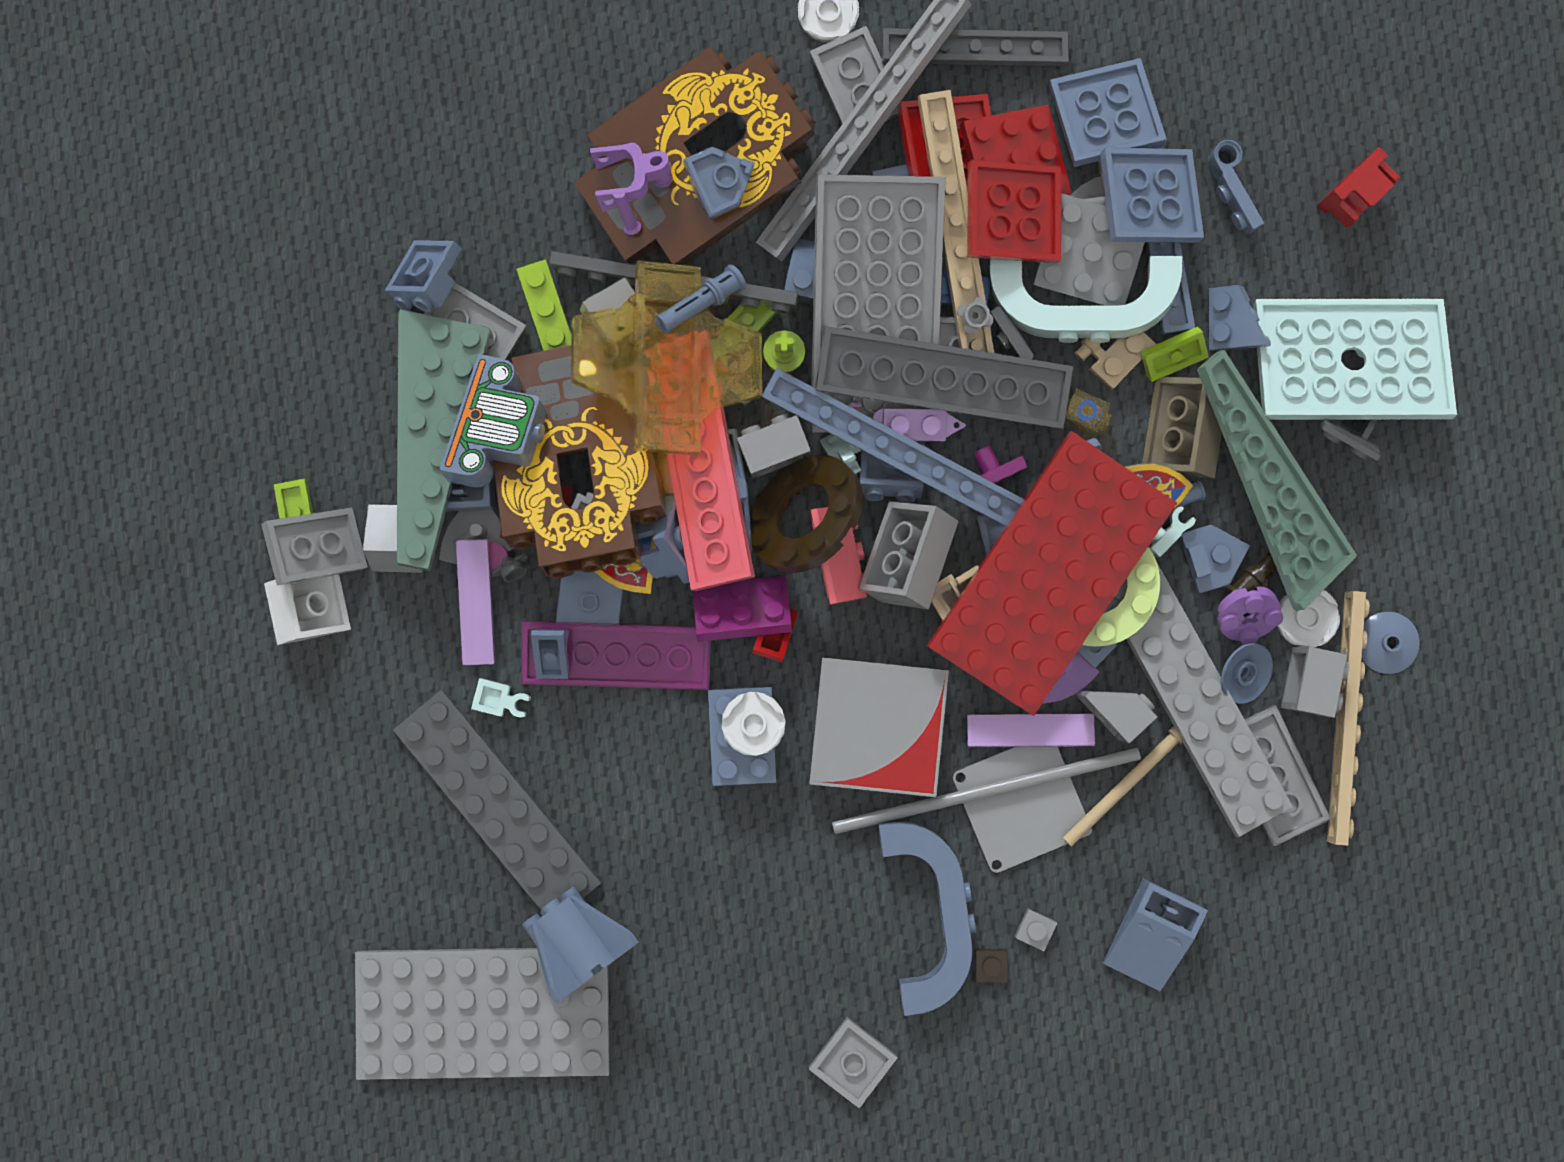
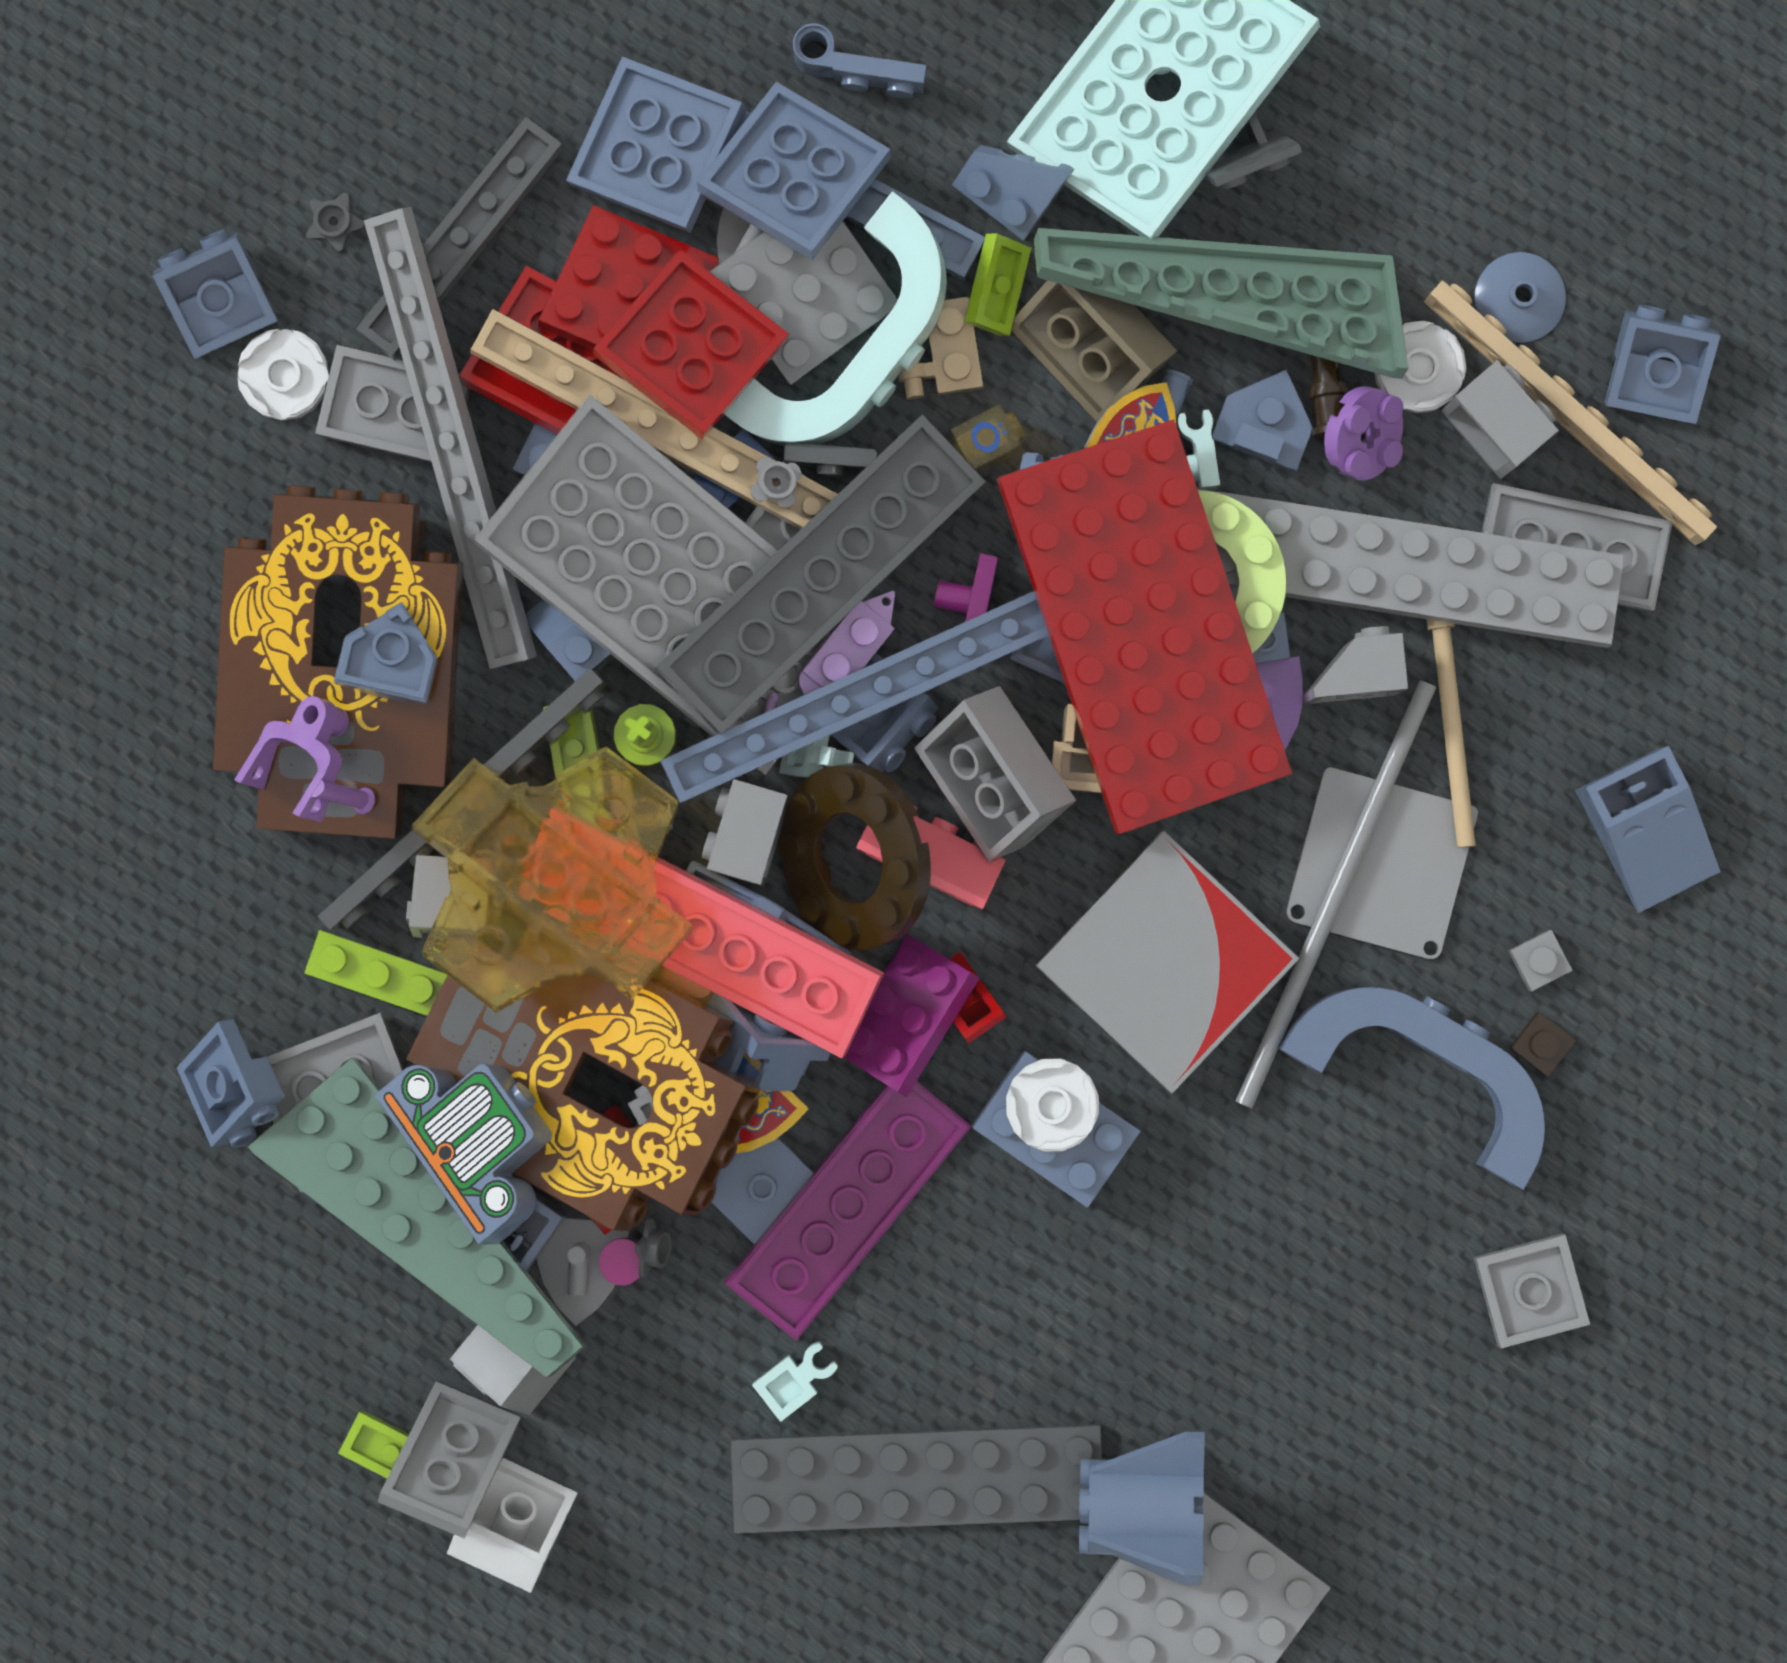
camera: 55 degrees left, 0 degrees up
(475, 601) = (658, 1320): lavender tile -> none
(550, 653) = (788, 1278): sand blue slope -> none
(712, 293) = (515, 768): sand blue pin -> none
(1031, 730) = (1306, 789): lavender tile -> none
(1247, 672) = (1430, 487): sand blue dish -> none
(1413, 747) = (1662, 364): none -> sand blue plate

